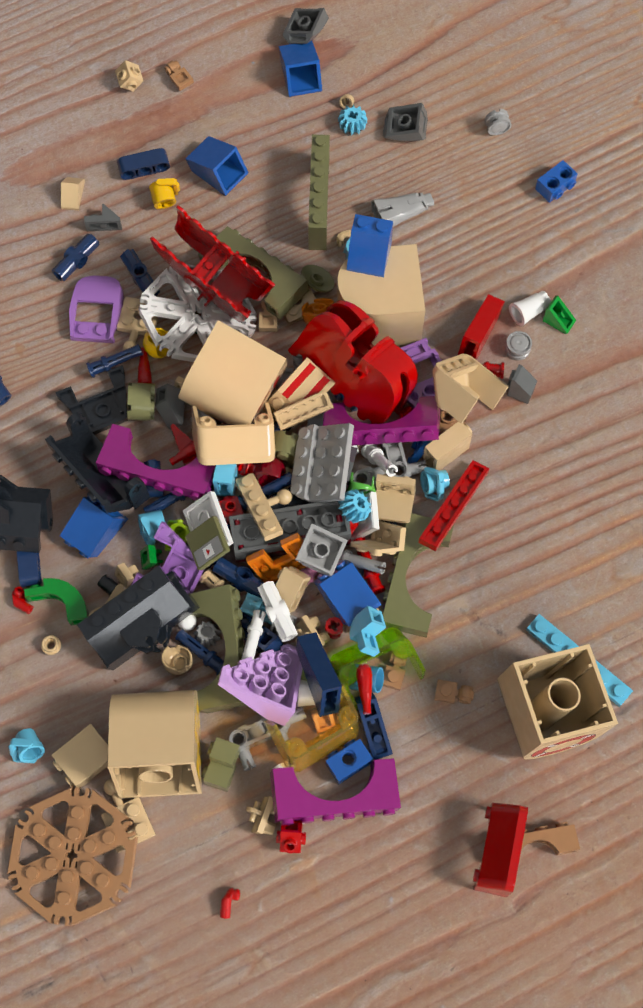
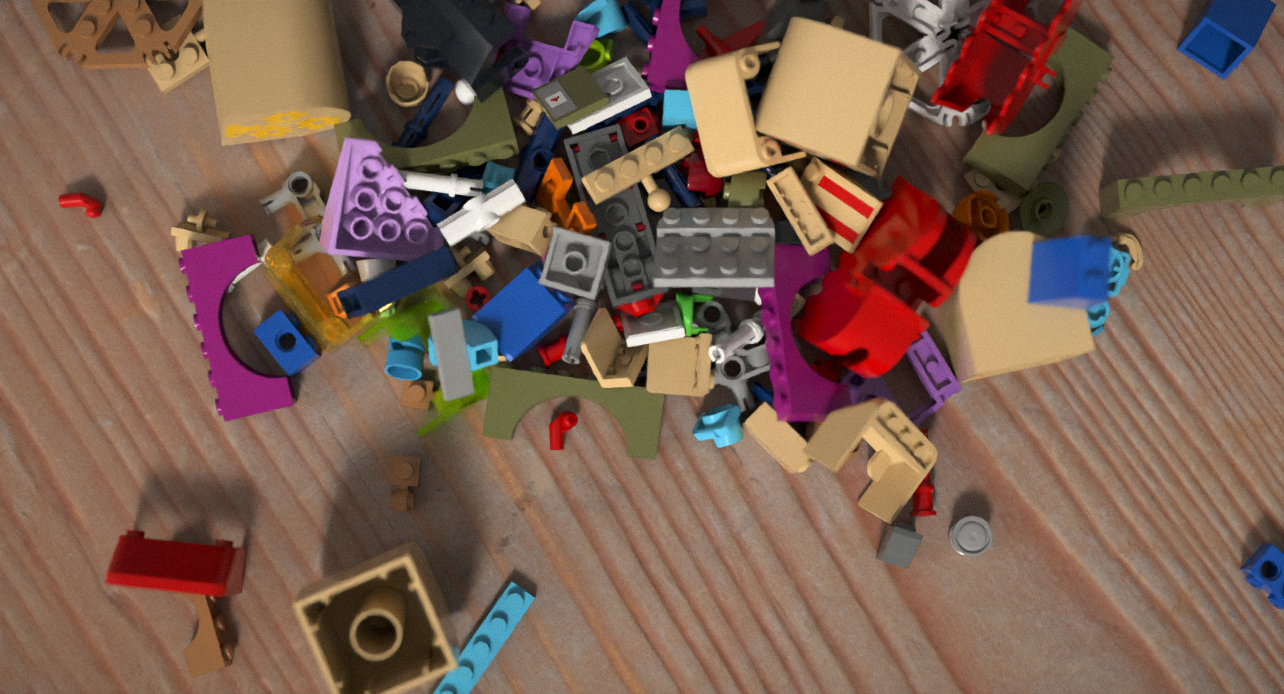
camera: 75 degrees right, 15 degrees up
(149, 558) = (556, 21): green tile -> none
(207, 633) = (451, 119): light grey piece -> none
(222, 764) = (260, 165): olive brick -> none
(267, 321) = (958, 142): tan plate -> none
(291, 837) = (167, 276): red brick -> none
(355, 506) = (654, 306): medium azure gear -> none
(364, 682) = (385, 350): red piece -> none
(373, 636) = (451, 353): none -> light grey tile
(374, 729) = (342, 370): dark blue slope -> none
(401, 207) = (1189, 326): light grey piece -> none
(425, 587) = (559, 427): none -> red arm
(453, 505) = (683, 456): red plate -> none
(481, 327) = (990, 473): red slope -> none
(528, 308) = (1038, 549): white plant -> none
(559, 316) = (1029, 597): green slope -> none

